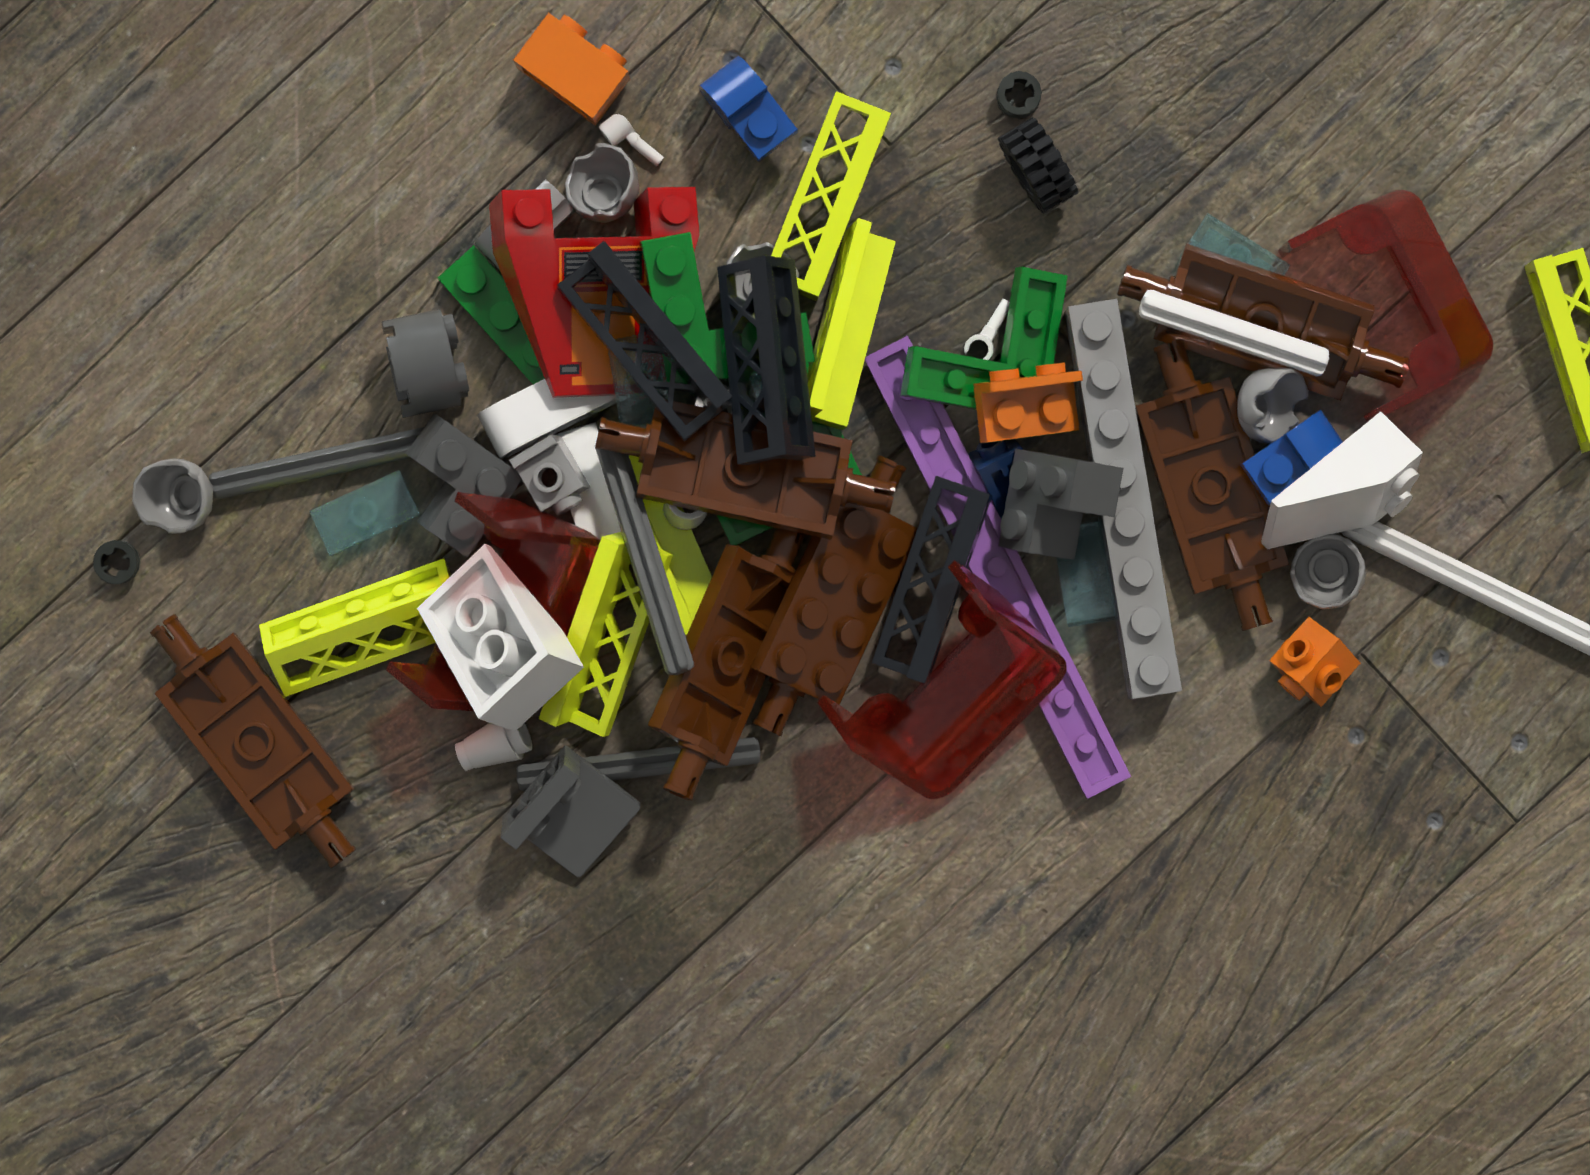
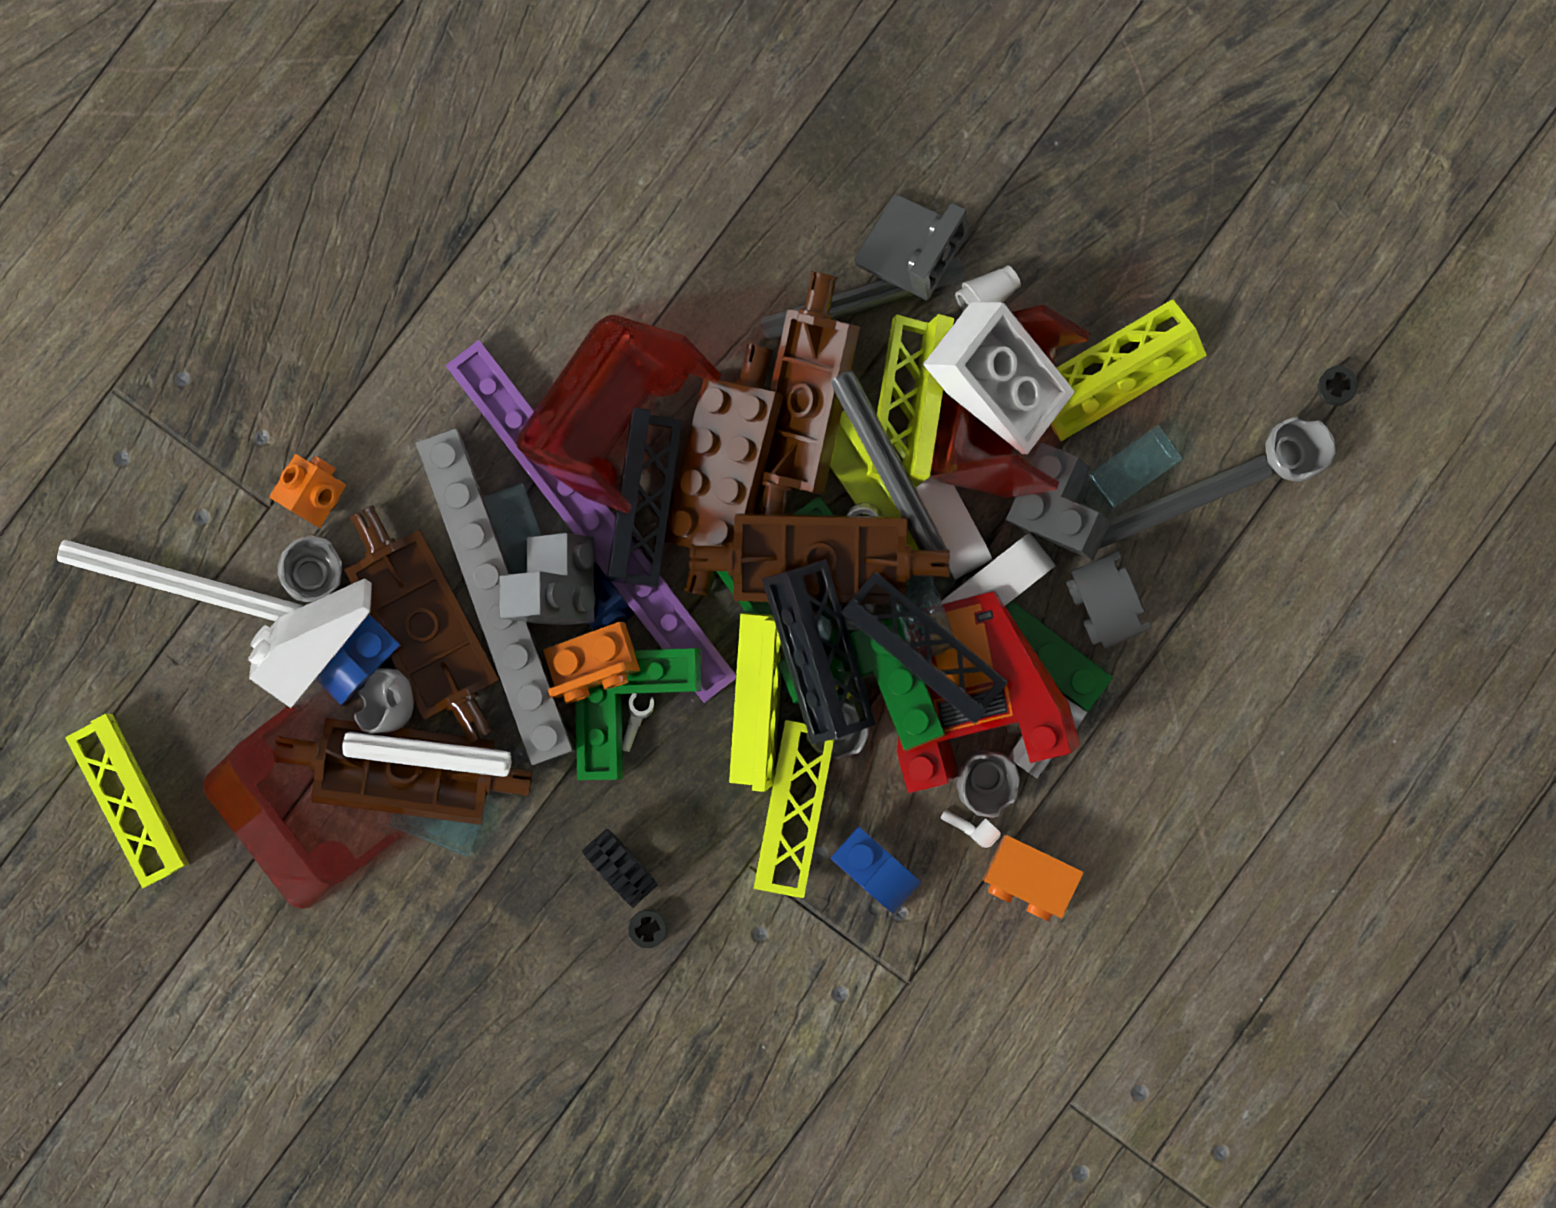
camera: 165 degrees right, 0 degrees up
(254, 740) = (1190, 256): reddish brown plate -> none
(570, 480) = (980, 539): light grey brick -> none

